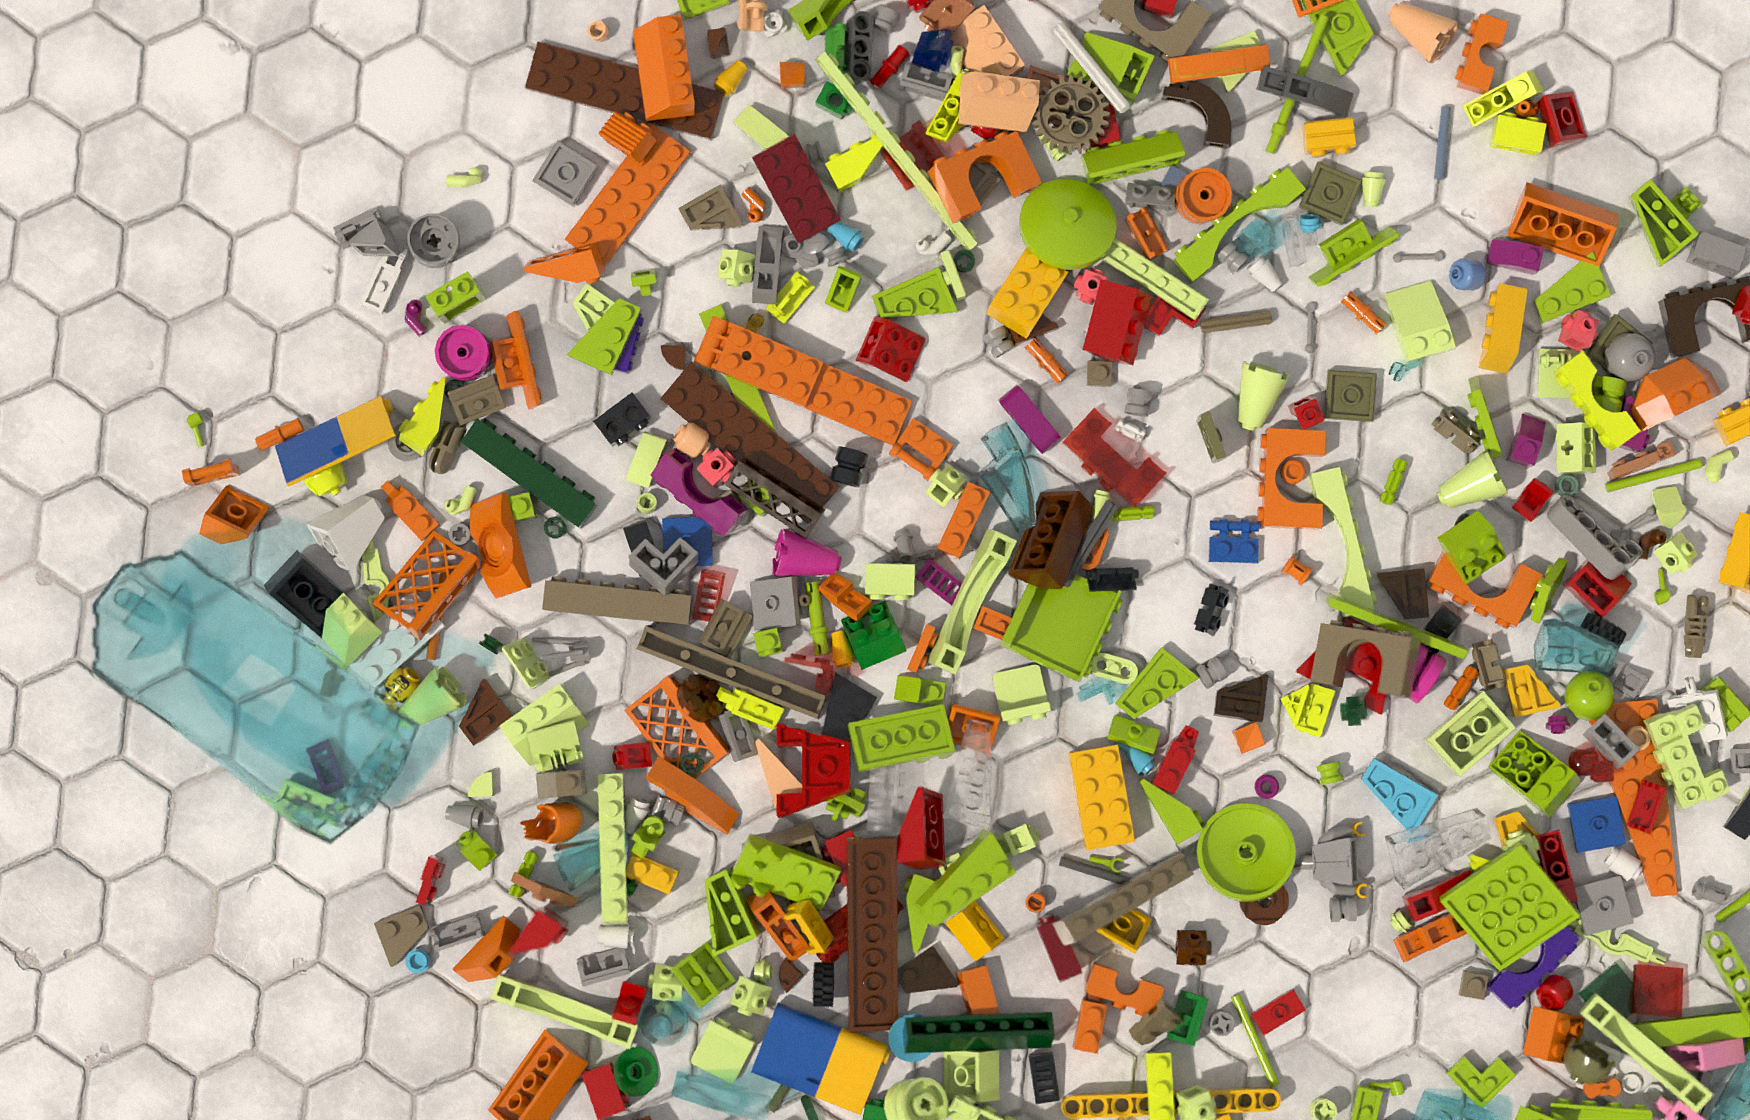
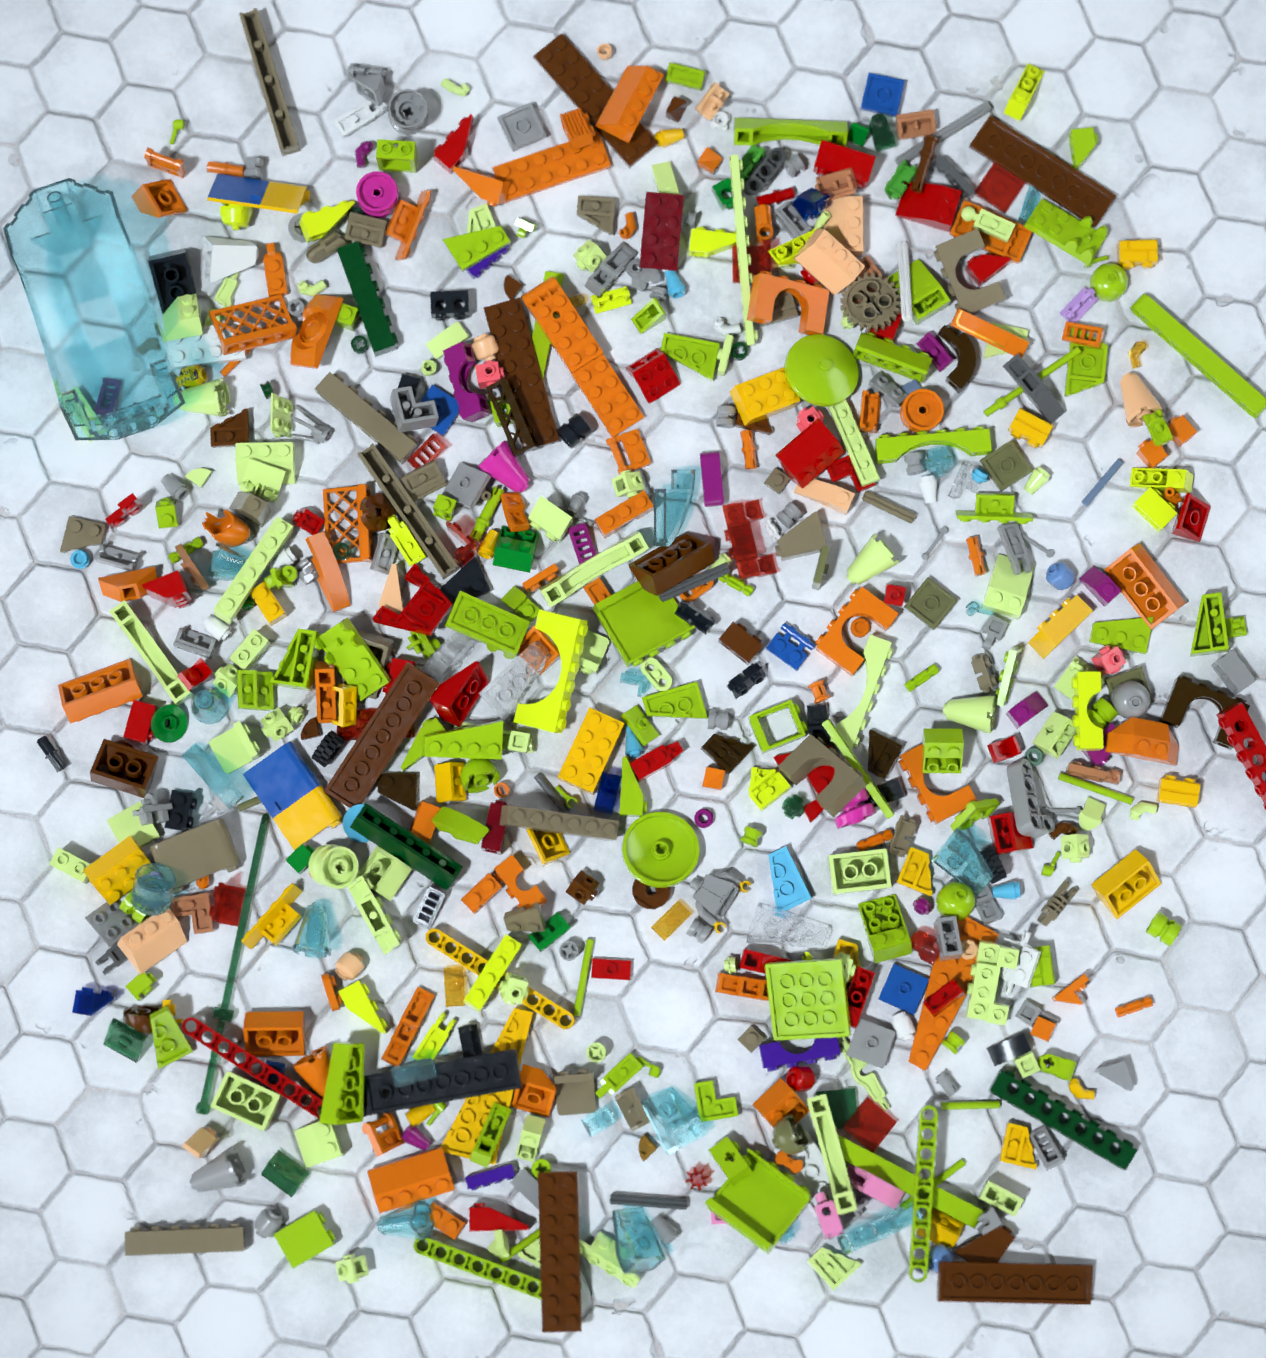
camera: 30 degrees right, 5 degrees down
(260, 308) = (269, 82): none -> dark tan tile
(309, 414) = (253, 168): none -> light grey wheel
(510, 247) = (454, 148): none -> red slope
(667, 936) = (250, 650): none -> yellowish green brick
(896, 104) = (763, 222): none -> orange piece
(997, 693) = (568, 636): none -> neon yellow arch
(999, 904) = (478, 774): none -> lime cylinder
(1020, 973) = (459, 825): none -> lime slope
(1149, 831) = (607, 793): none -> clear blue slope
(1164, 353) = (827, 495): none -> light nougat slope
(1169, 419) = (802, 540): none -> dark tan slope
(1172, 117) = (936, 349): none -> magenta slope
(1180, 574) = (740, 642): none -> reddish brown brick
(1302, 620) = (759, 734): none -> lime window
(1306, 917) = (671, 920): none -> clear yellow plate
(1314, 602) = (816, 716): none -> black slope
(1399, 276) = (1015, 547): none -> light grey hinge
(1435, 377) = (994, 629): none -> light grey plate
(1466, 46) = (1157, 428): none -> lime hips
(1636, 646) = (1007, 891): none -> medium azure cone
(1686, 845) = (953, 1042): none -> lime wheel

